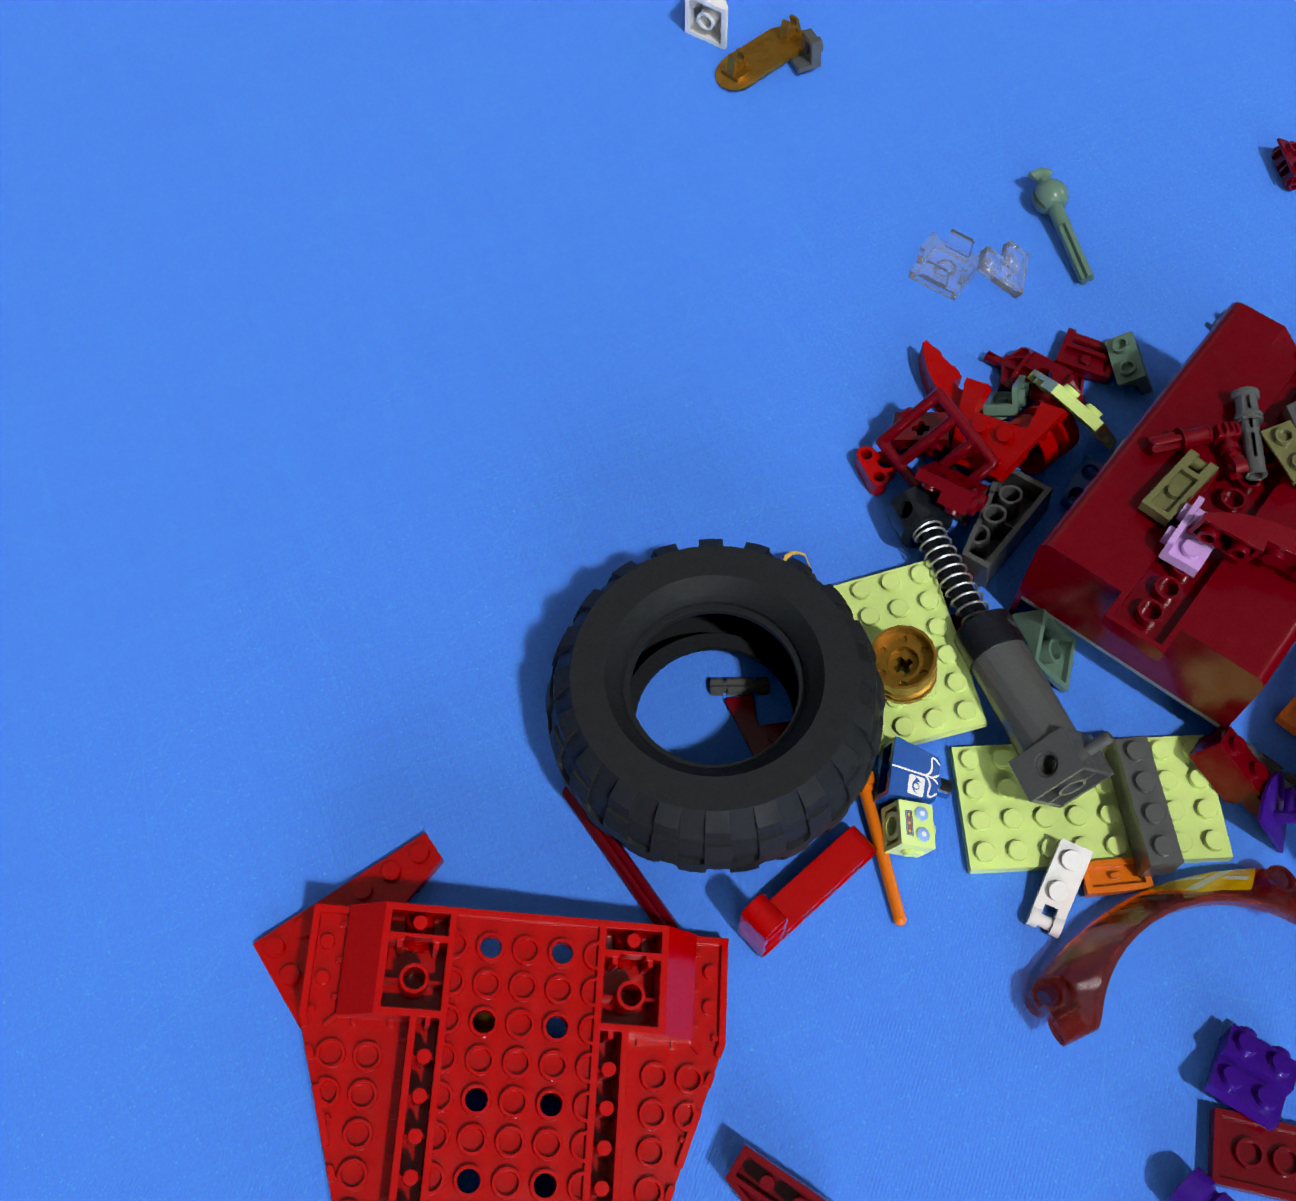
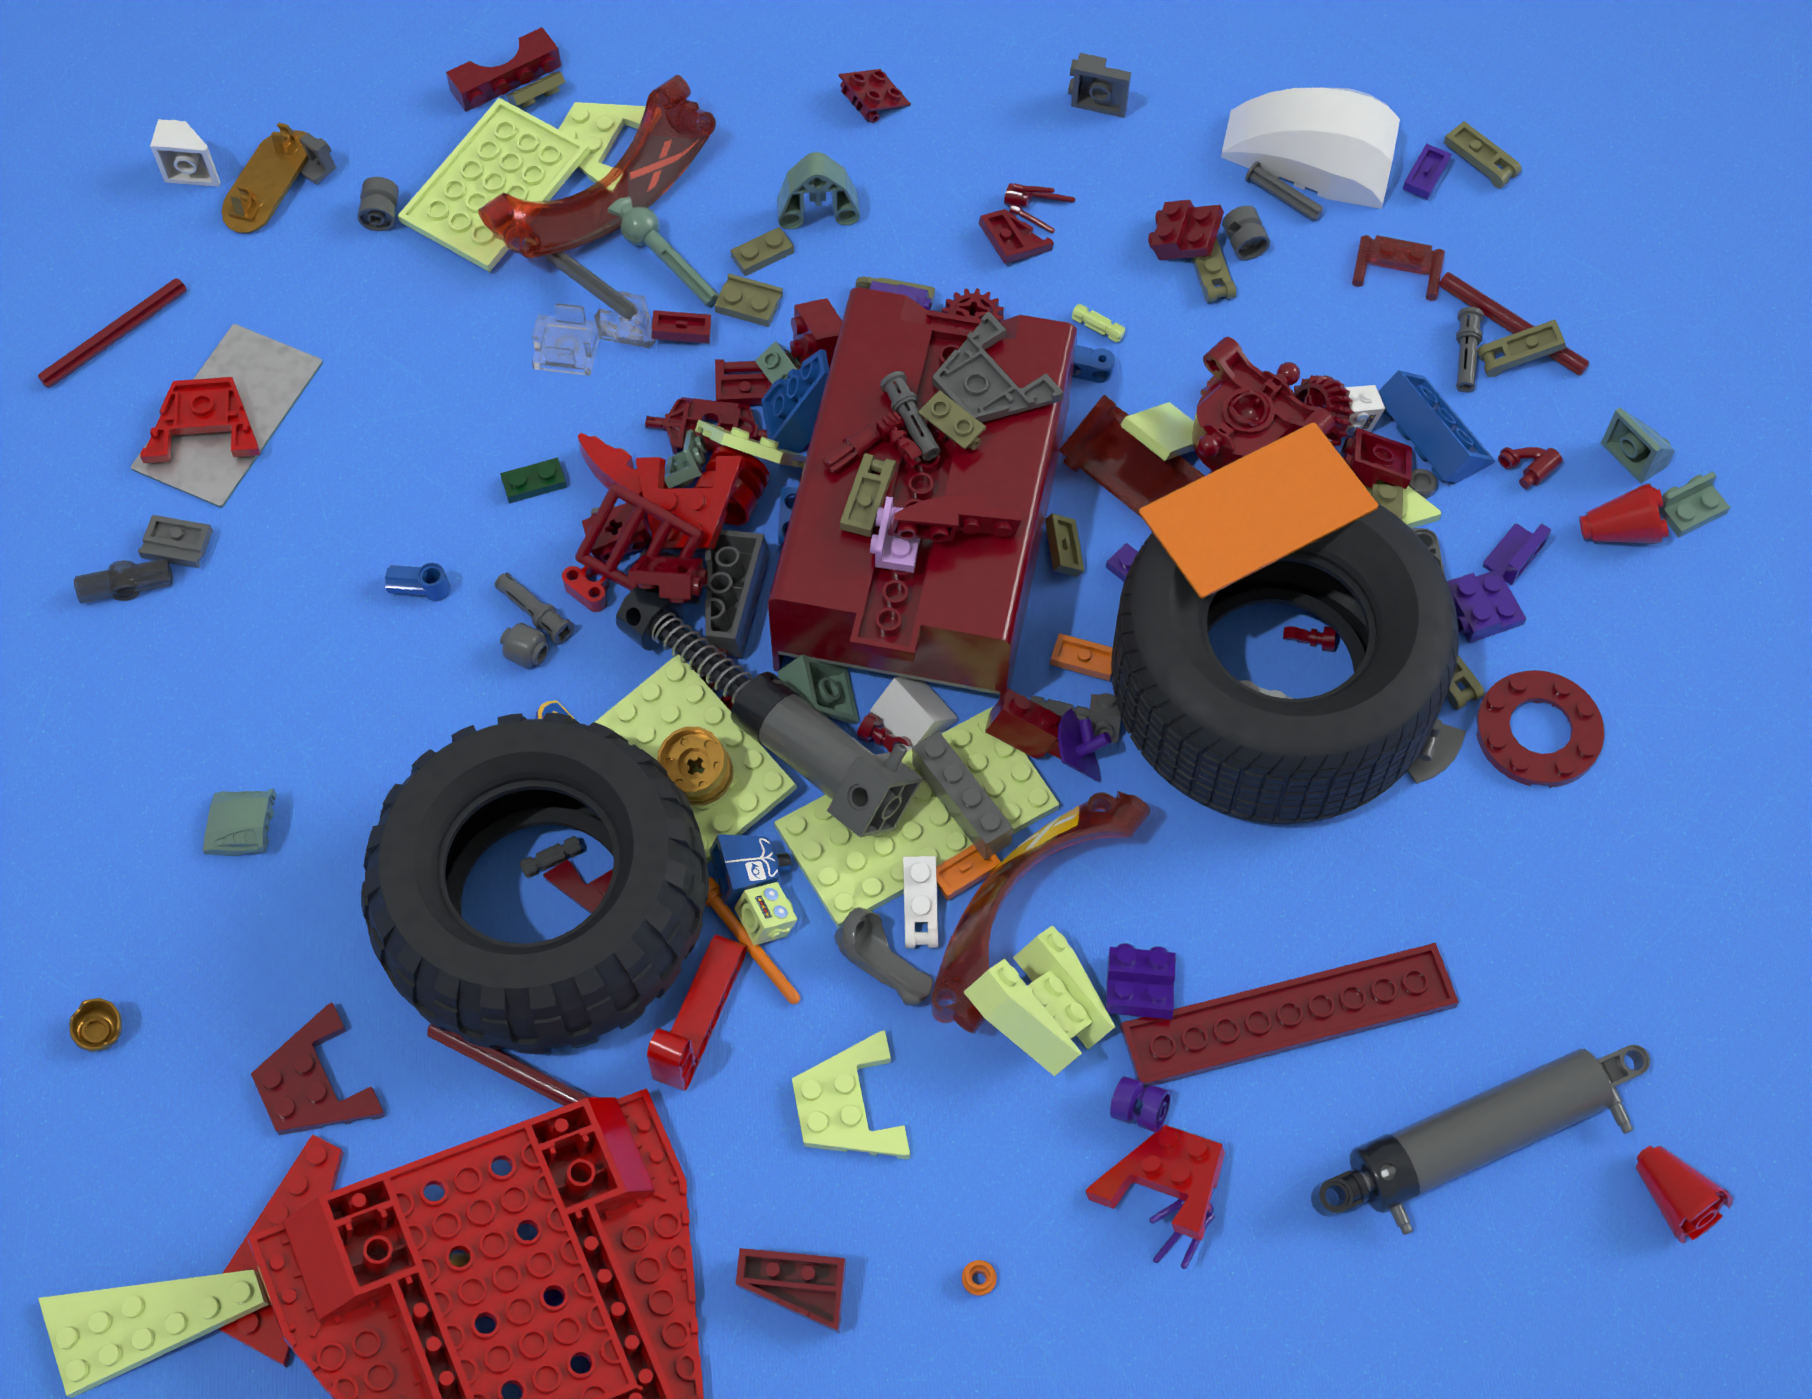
camera: 30 degrees left, 0 degrees up
(195, 925) = (124, 1327): none -> yellowish green wing
(302, 652) = (95, 1025): none -> pearl gold hair
(435, 785) = (297, 1087): none -> dark red wing
(498, 539) = (238, 822): none -> sand green slope
(505, 309) = (123, 580): none -> clear smoke piece
(560, 296) = (175, 539): none -> dark grey plate
(591, 124) = (112, 333): none -> dark red axle
(627, 203) = (198, 408): none -> red wing
(647, 218) = (269, 383): none -> flat silver piece
(742, 408) = (417, 581): none -> blue piece
(799, 496) = (524, 645): none -> dark grey head
(826, 477) = (543, 615): none -> dark grey pin
(841, 103) = (378, 204): none -> dark grey wheel
(868, 364) = (533, 480): none -> dark green plate
(893, 1044) = (833, 1104): none -> yellowish green wing
(942, 122) = (500, 154): none -> yellowish green plate
(962, 43) = (478, 84): none -> dark red arch
(989, 224) = (593, 284): none -> dark grey axle
(989, 903) = (866, 946): none -> dark grey hair
(1019, 64) = (526, 94): none -> olive plate
(1040, 112) = (598, 128): none -> yellowish green wing
(1050, 290) = (681, 326): none -> dark red plate
(1076, 704) = (870, 730): none -> dark red piece
(1090, 147) = (653, 162): none -> clear red panel
(1118, 291) = (748, 300): none -> olive plate
(1122, 705) = (912, 710): none -> white slope
(1129, 389) = (794, 402): none -> blue wedge
(1147, 257) = (762, 251): none -> olive plate
(1147, 1059) = (1047, 1011): none -> yellowish green wedge
(1170, 343) = (814, 328): none -> dark red brick
(1226, 206) = (816, 176): none -> sand green connector

